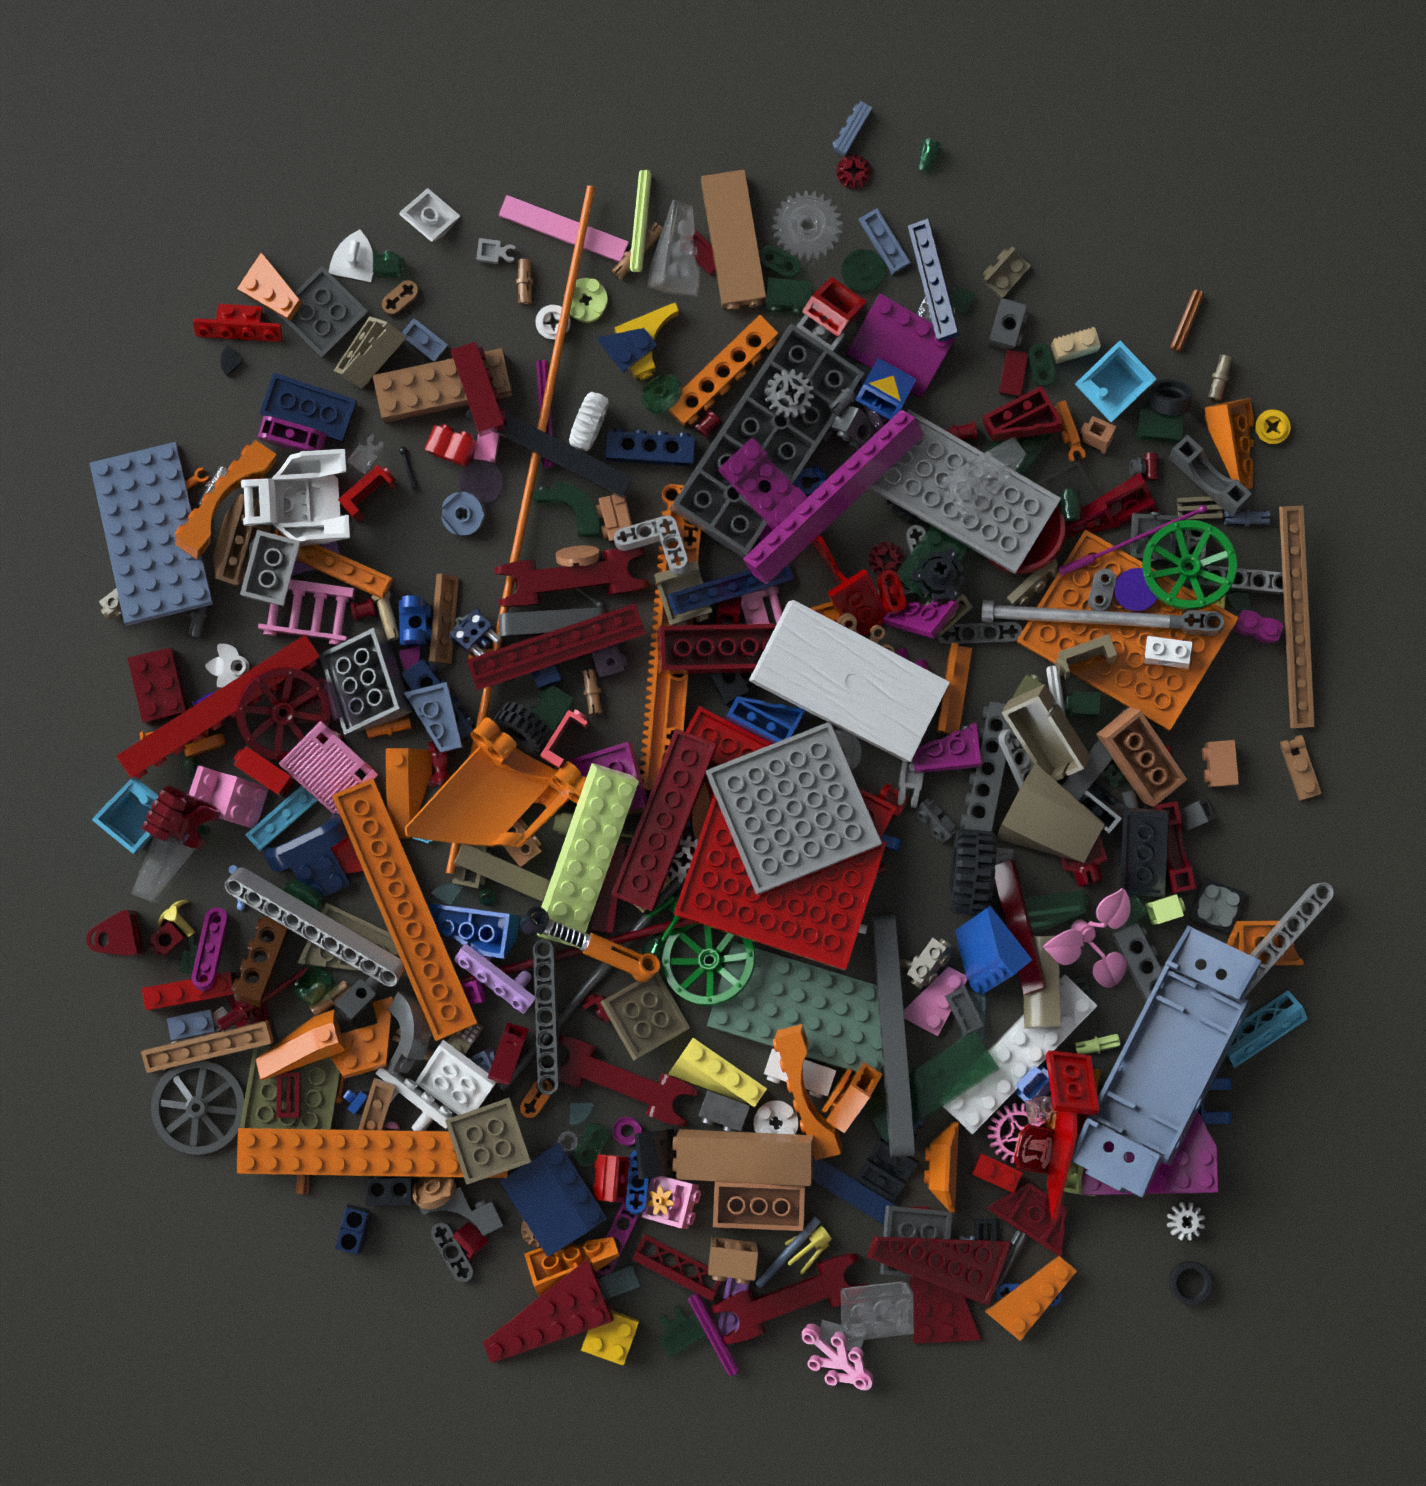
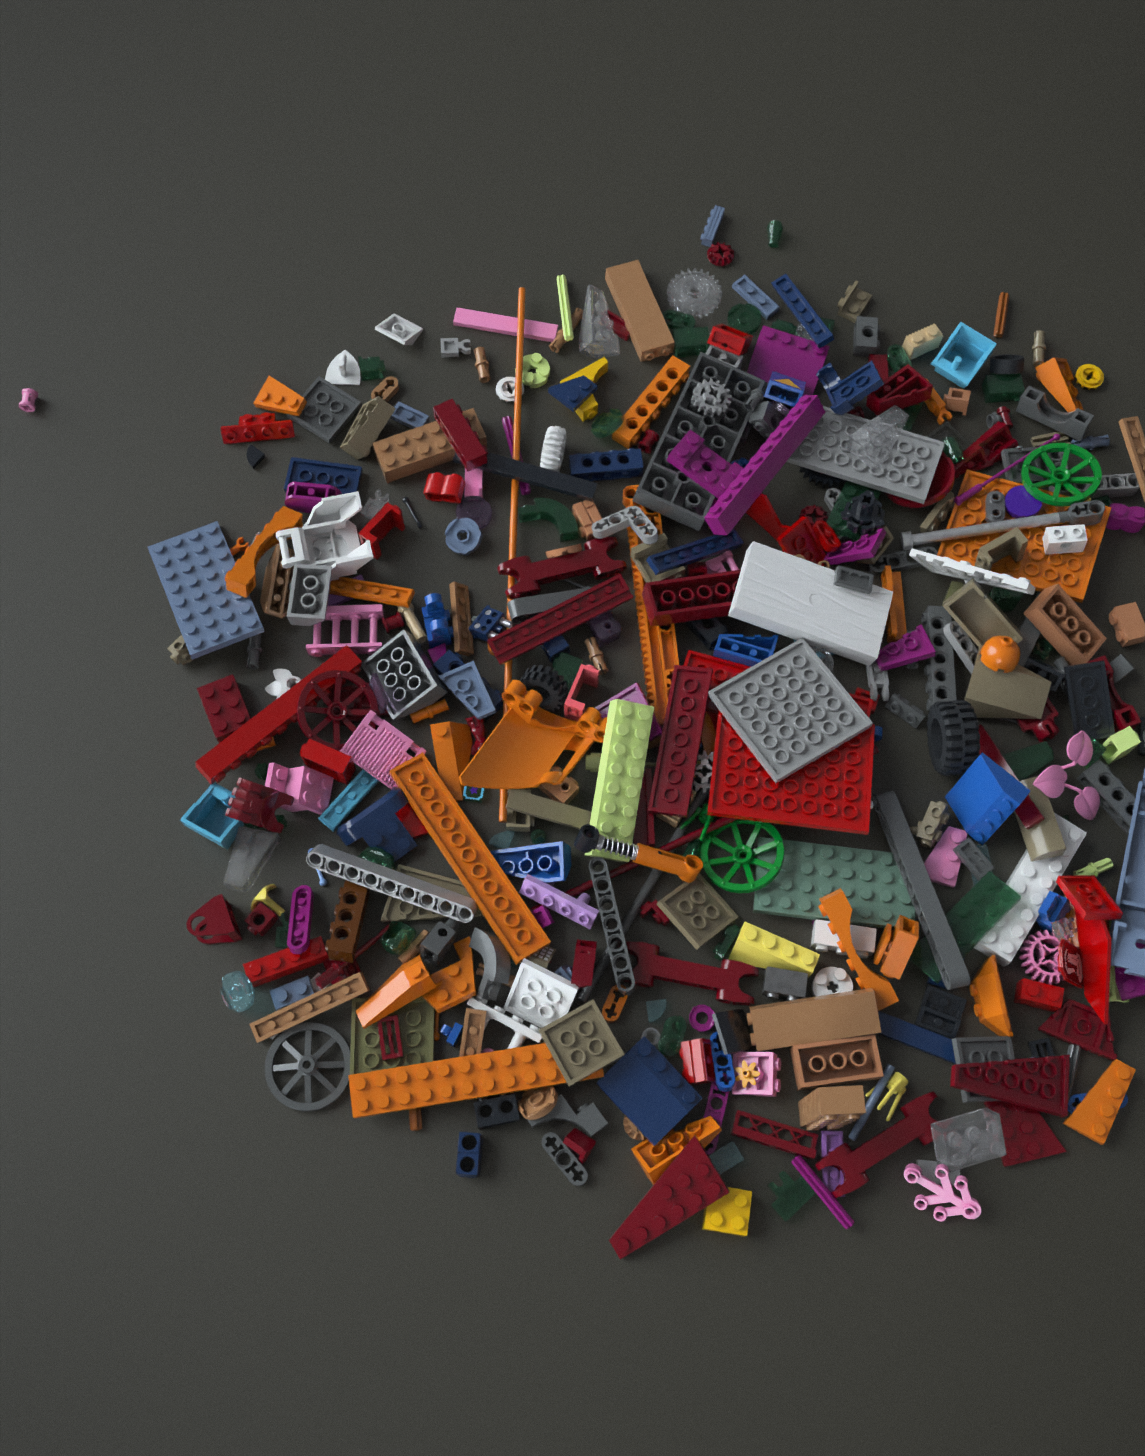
camera: 10 degrees left, 15 degrees down
(132, 1015) = (237, 991): none -> clear light blue tile
(205, 745) = (273, 751): orange beam -> none
(677, 1046) = (721, 948): none -> clear green plate
(902, 664) = (853, 579): none -> dark grey plate
(907, 297) = (784, 326): none -> clear green brick
(963, 405) = (852, 388): none -> dark blue piece
(1044, 675) = (965, 571): none -> white wing
(1051, 784) = (1000, 653): none -> orange cylinder

